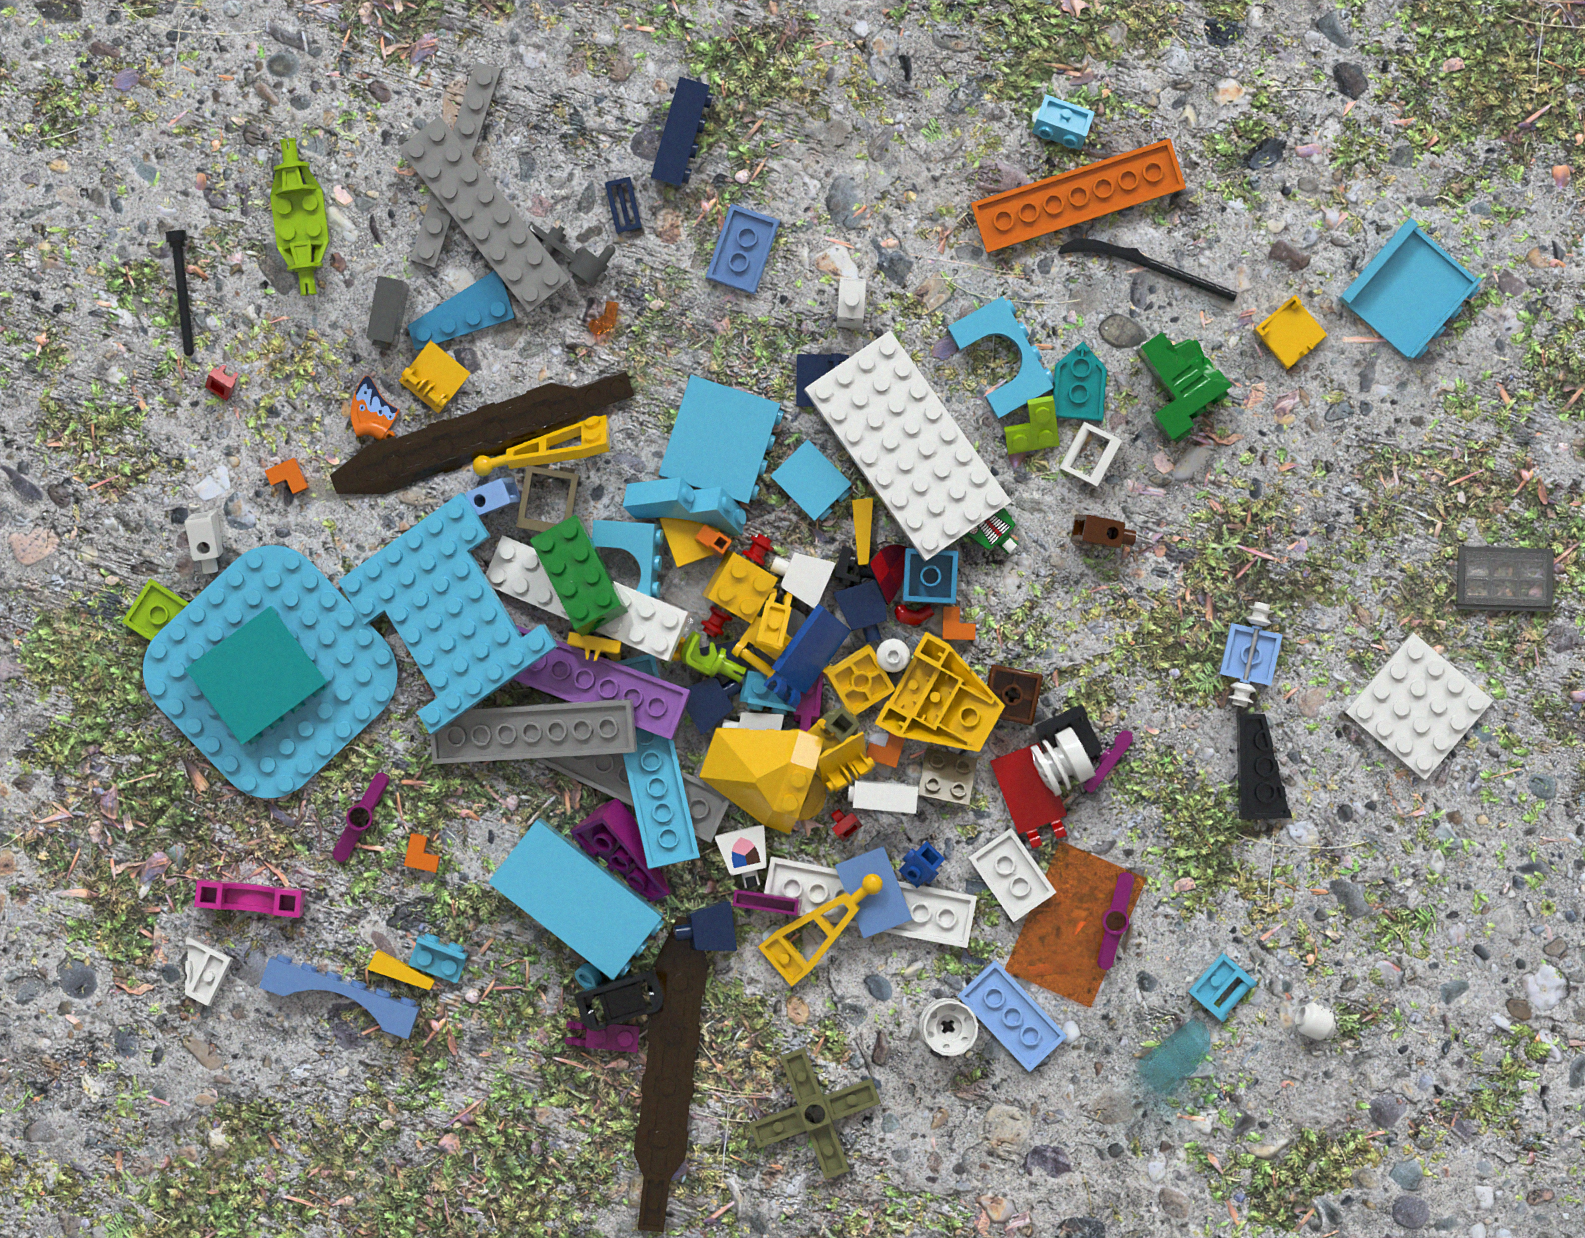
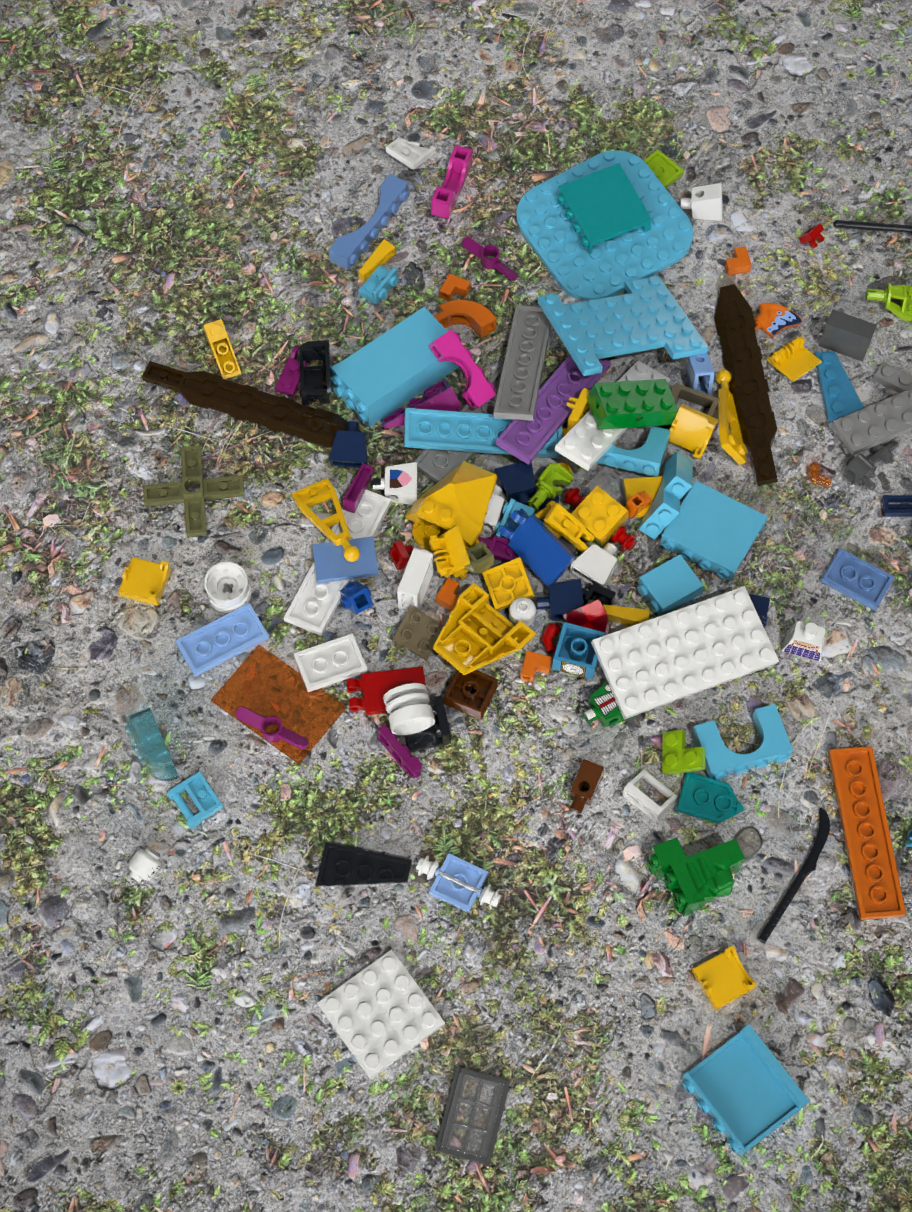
camera: 100 degrees right, 25 degrees down
(461, 833) = (469, 314): none -> orange arch
(585, 491) = (692, 430): none -> yellow piece
(593, 785) = (450, 349): none -> dark pink arch
(595, 1140) = (221, 349): none -> yellow slope
(953, 1136) = (145, 580): none -> yellow piece

